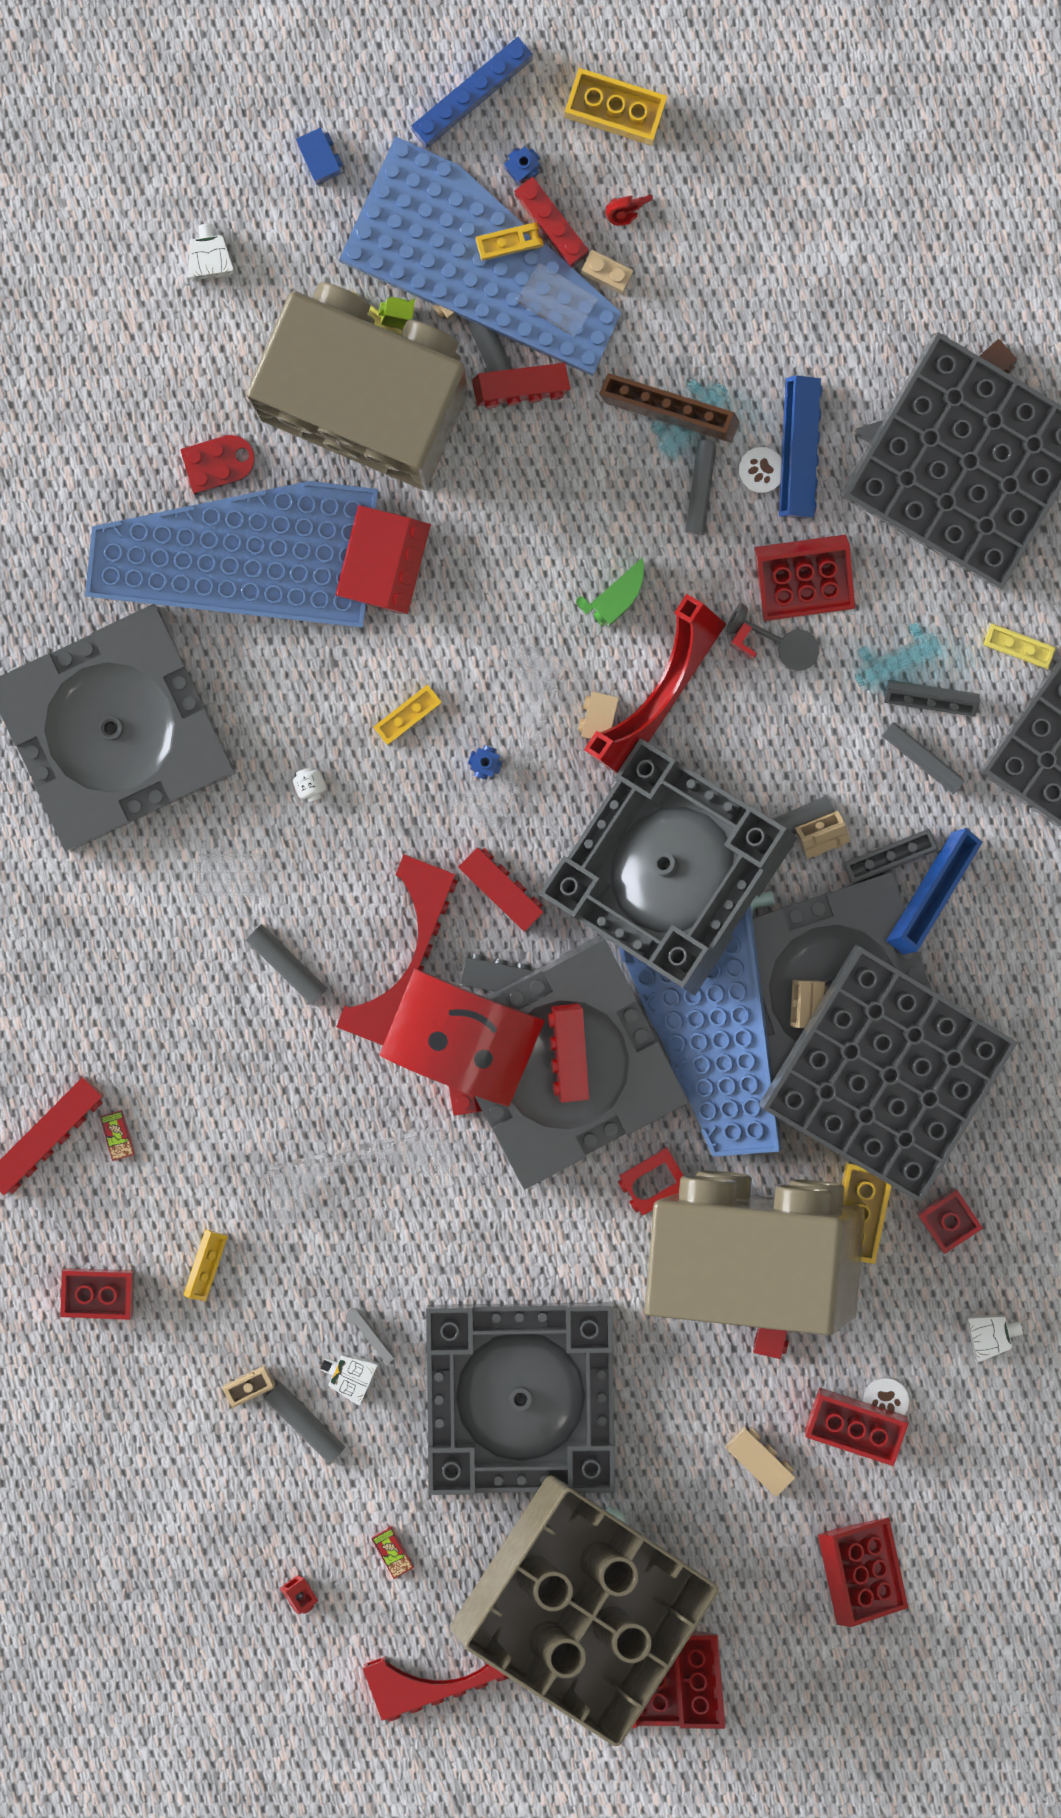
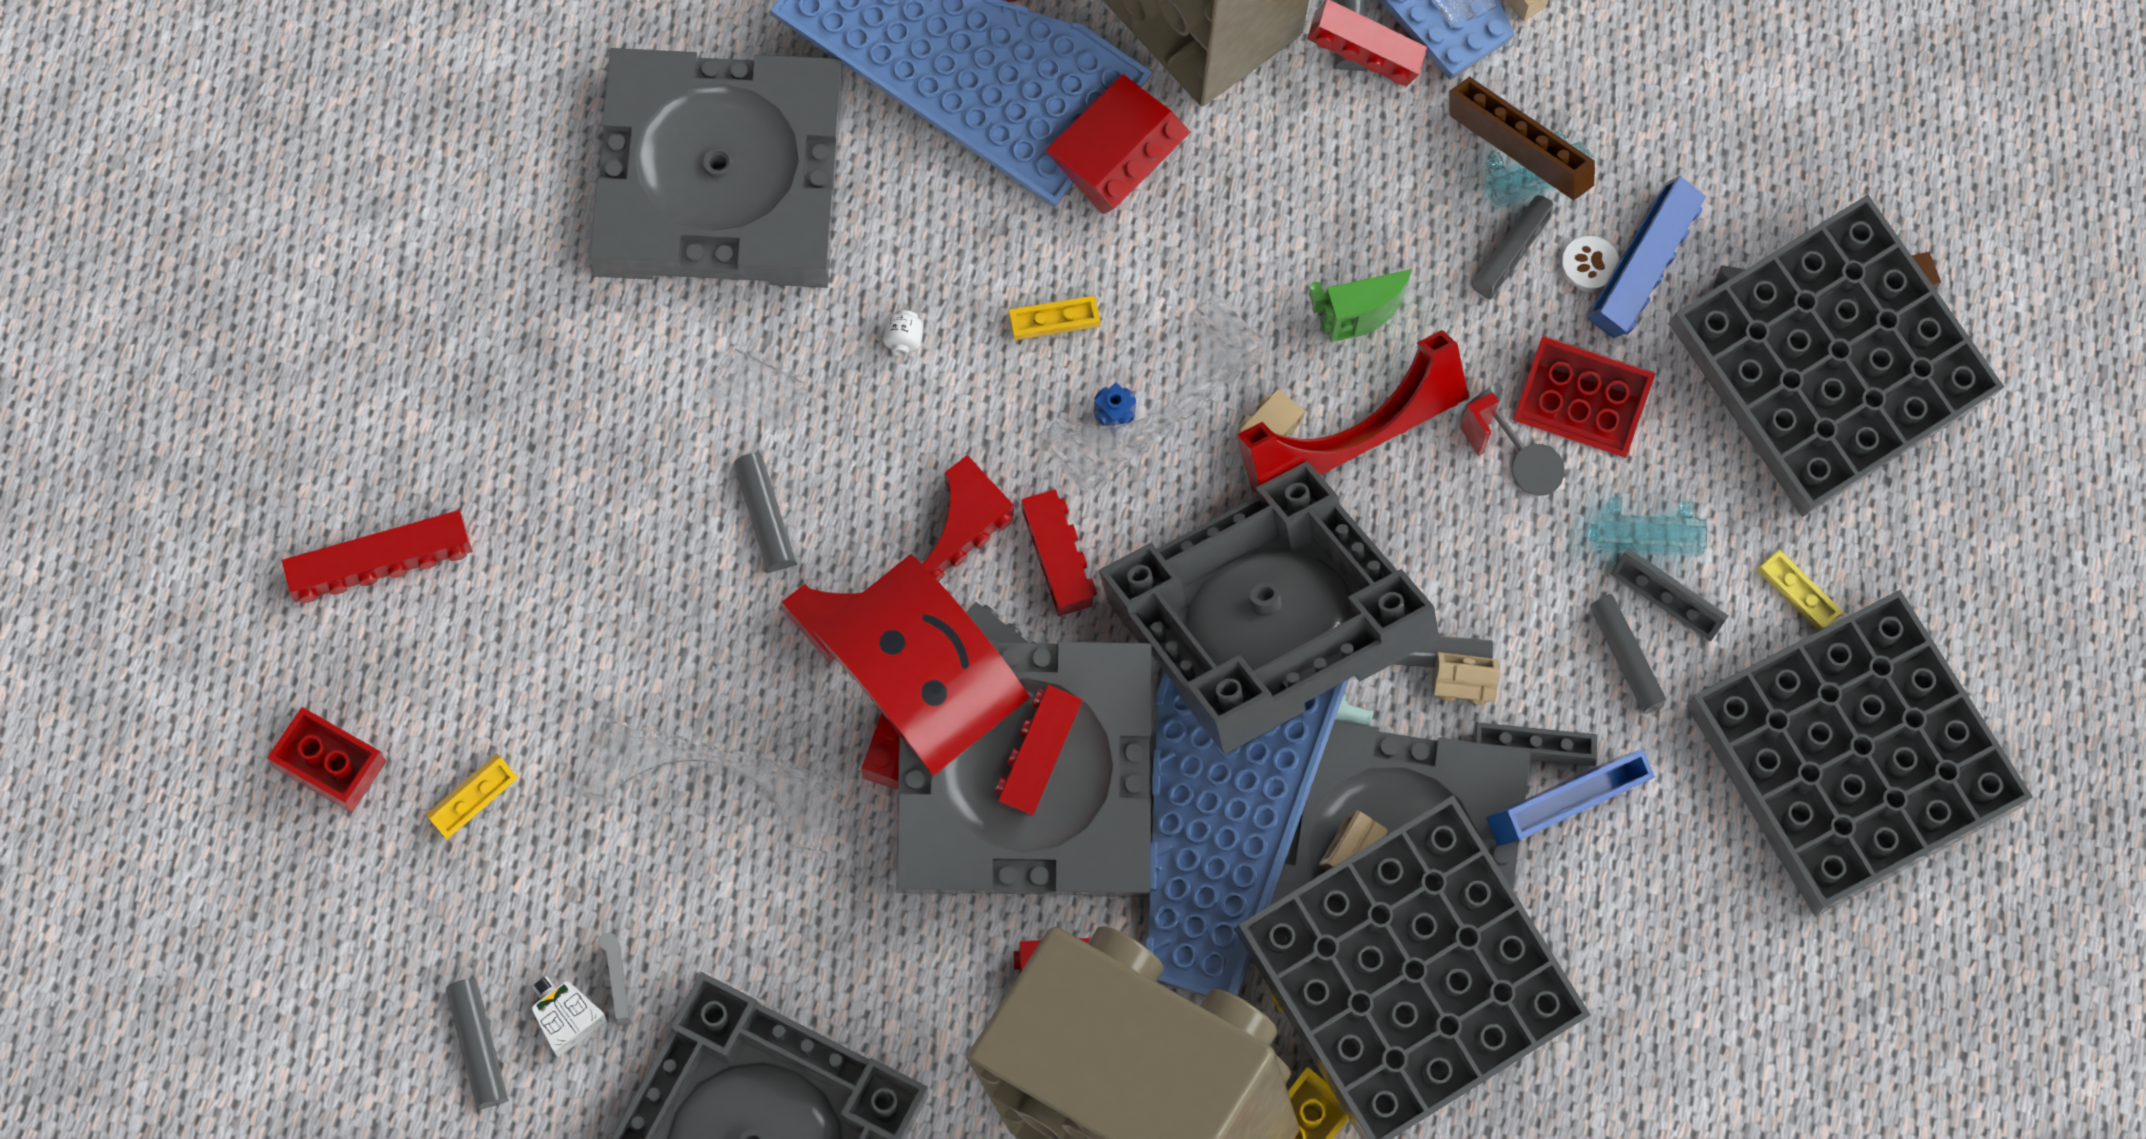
camera: 25 degrees right, 20 degrees down
(117, 1135) = (460, 600): tile -> none
(248, 1386) = (436, 960): tan brick -> none

